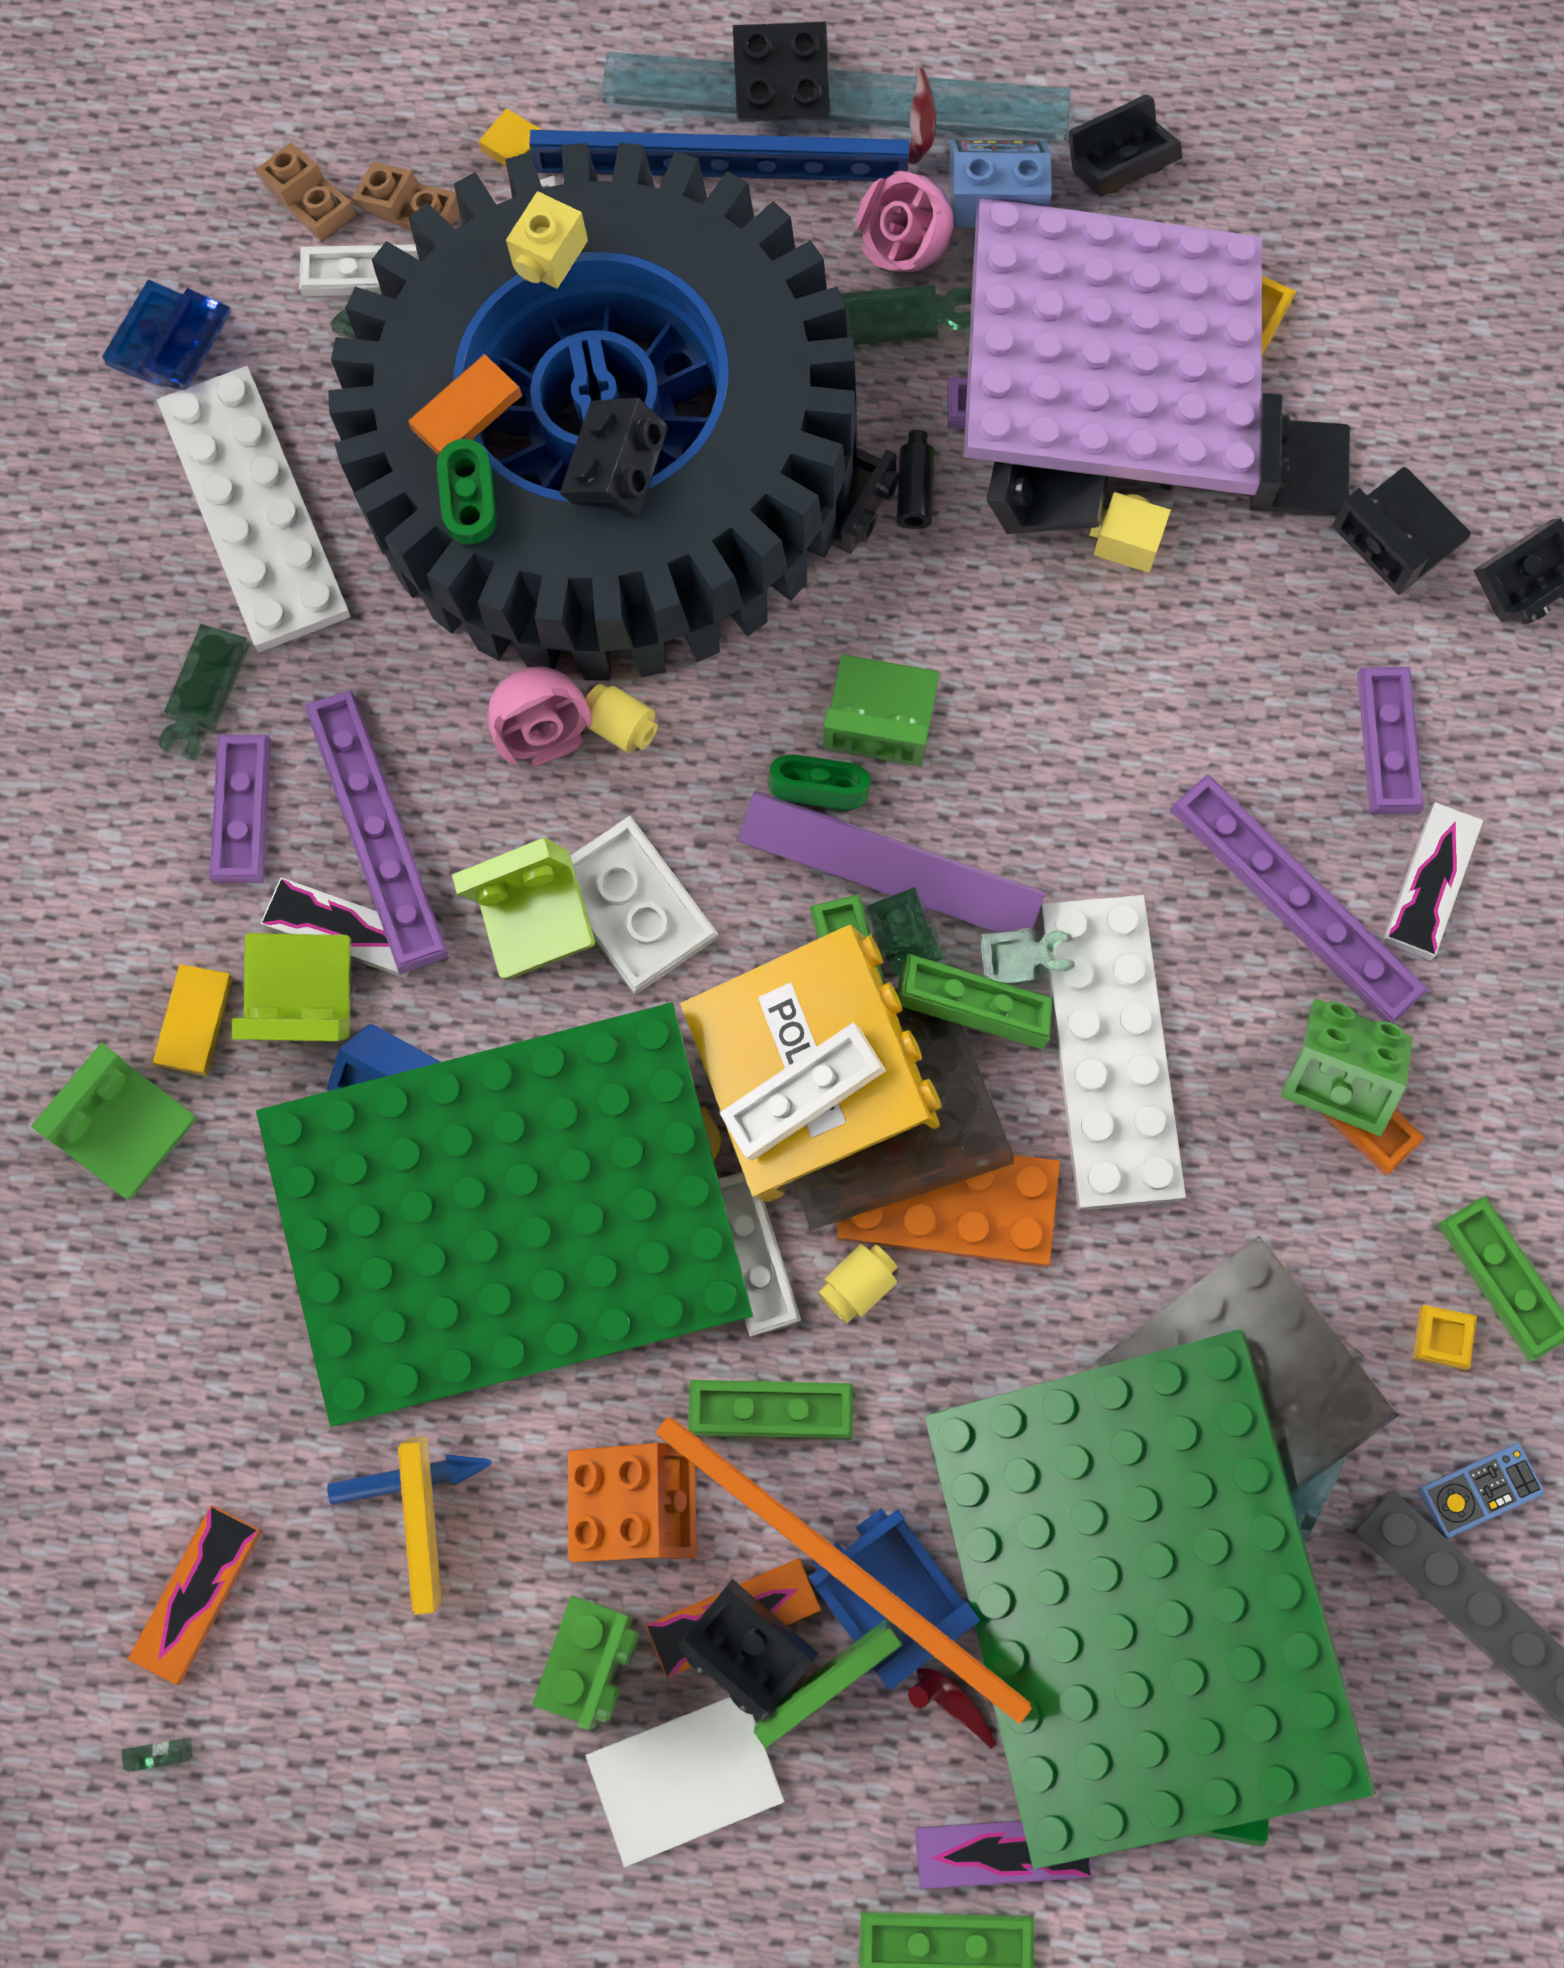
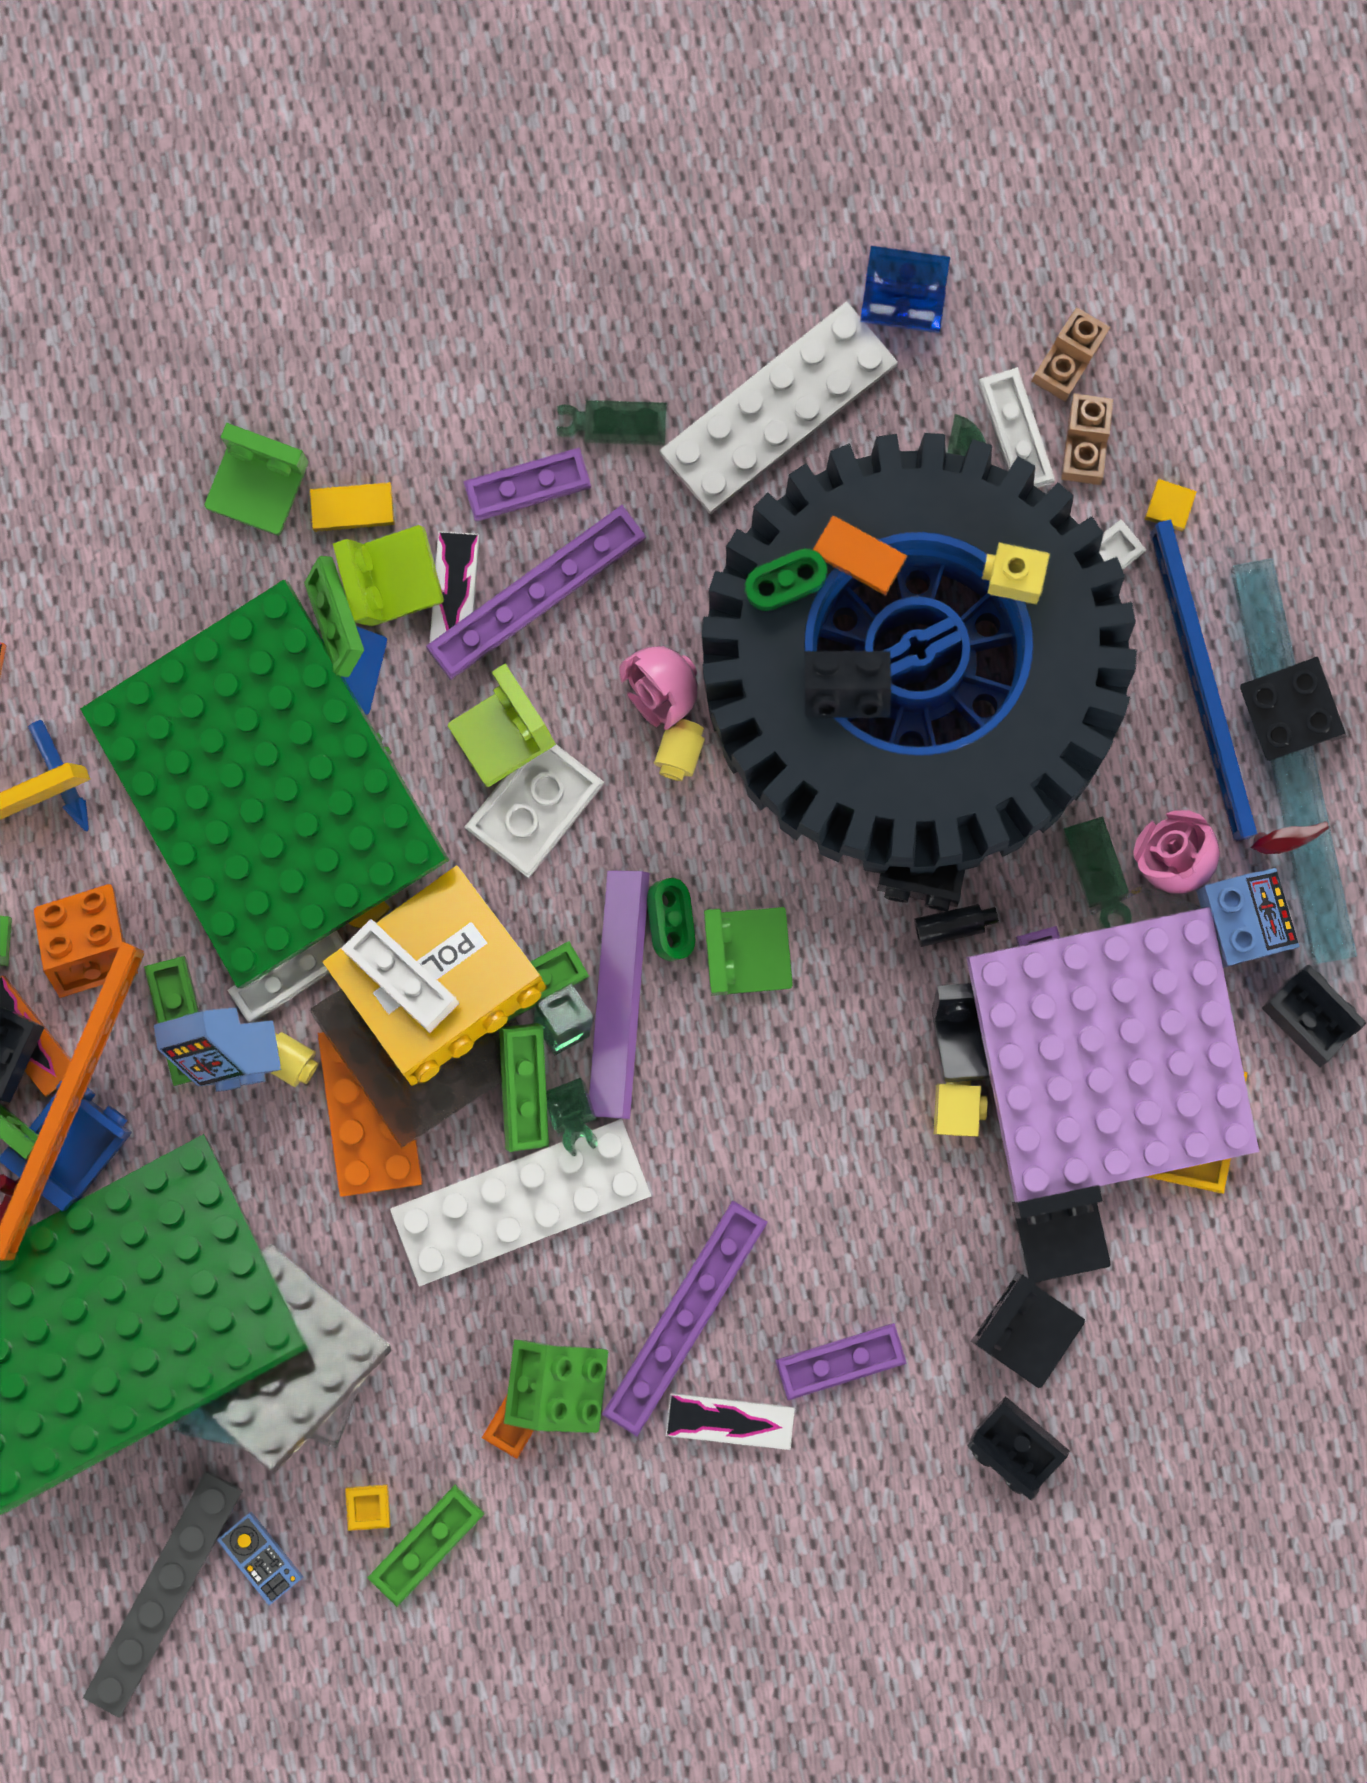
camera: 75 degrees right, 10 degrees up
(322, 1064) = (334, 616): none -> bright green tile
(827, 1351) = (219, 1050): none -> medium blue piece

